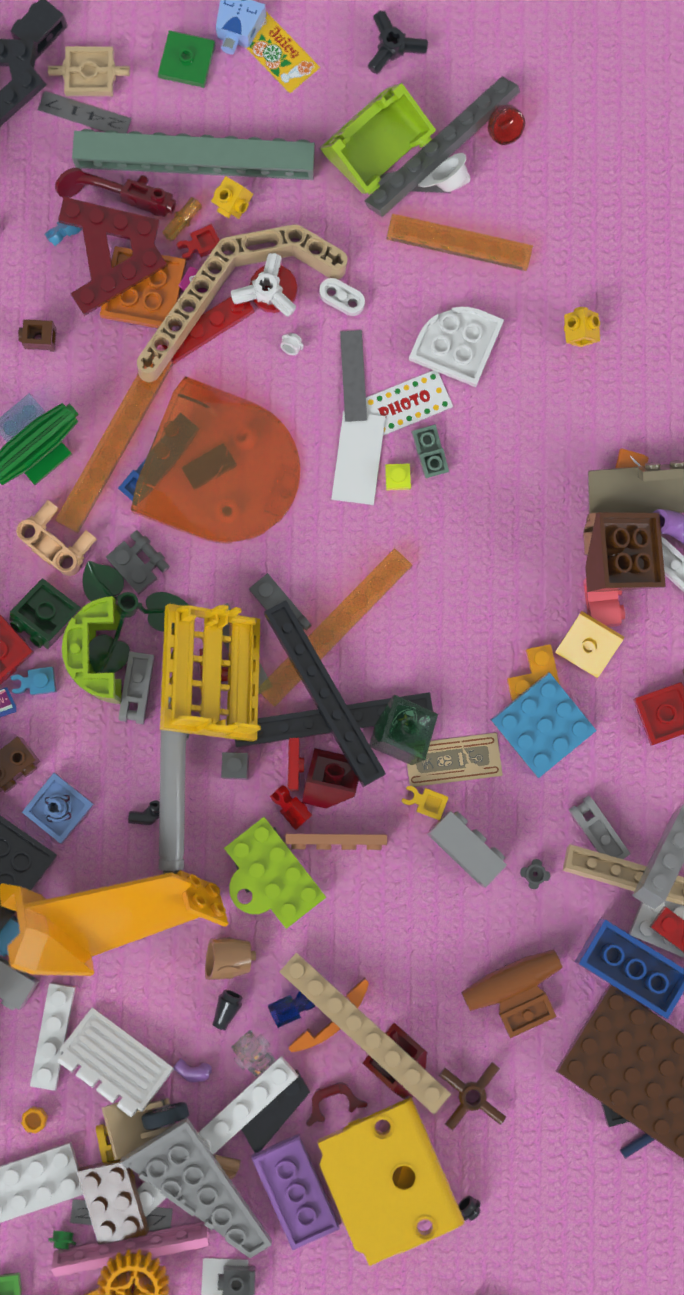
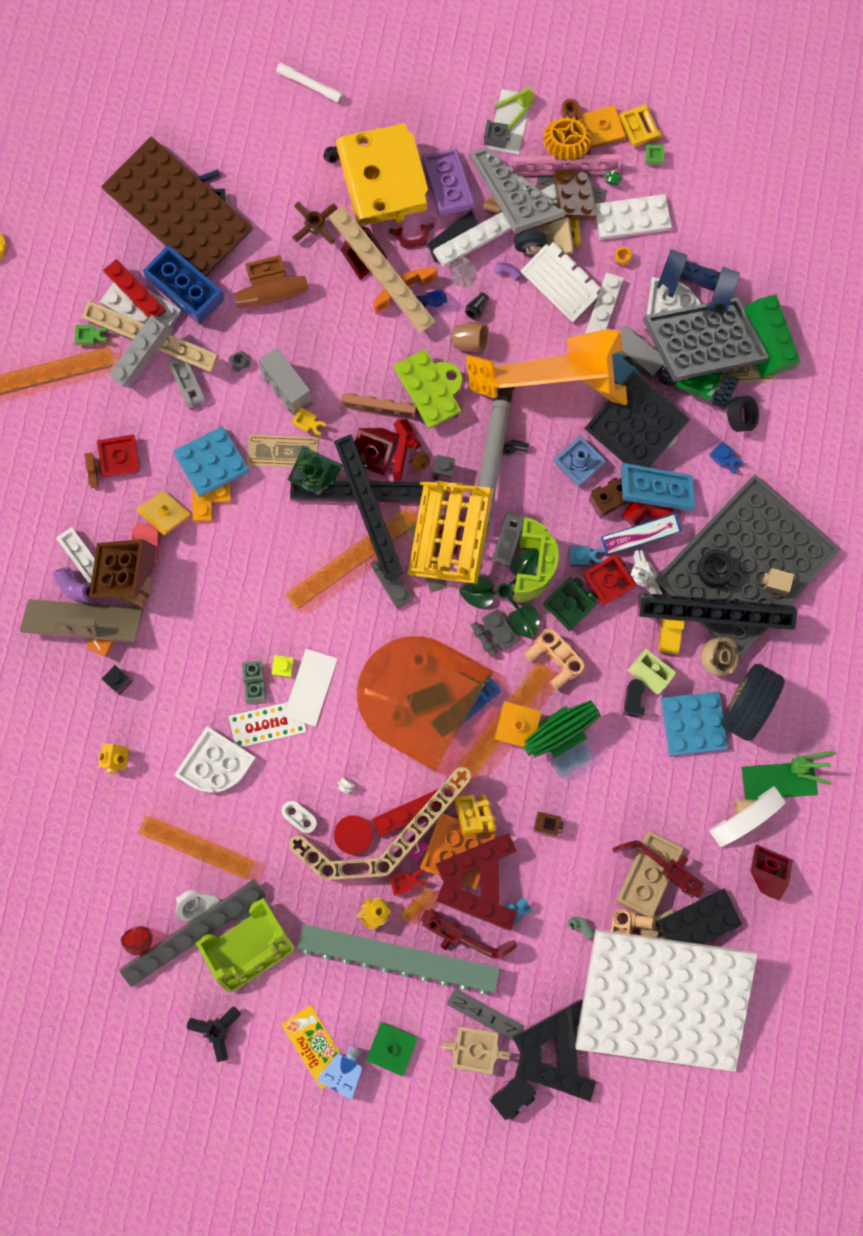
camera: 170 degrees left, 5 degrees down
(91, 446) = (516, 723): none -> light orange plate
(134, 328) = (469, 814): none -> yellow plate
(266, 278) = (368, 828): white bush -> none
(269, 774) = (420, 461): none -> dark orange plate
(353, 376) = (302, 753): flat silver sticker -> none
(600, 422) = (117, 680): none -> black brick

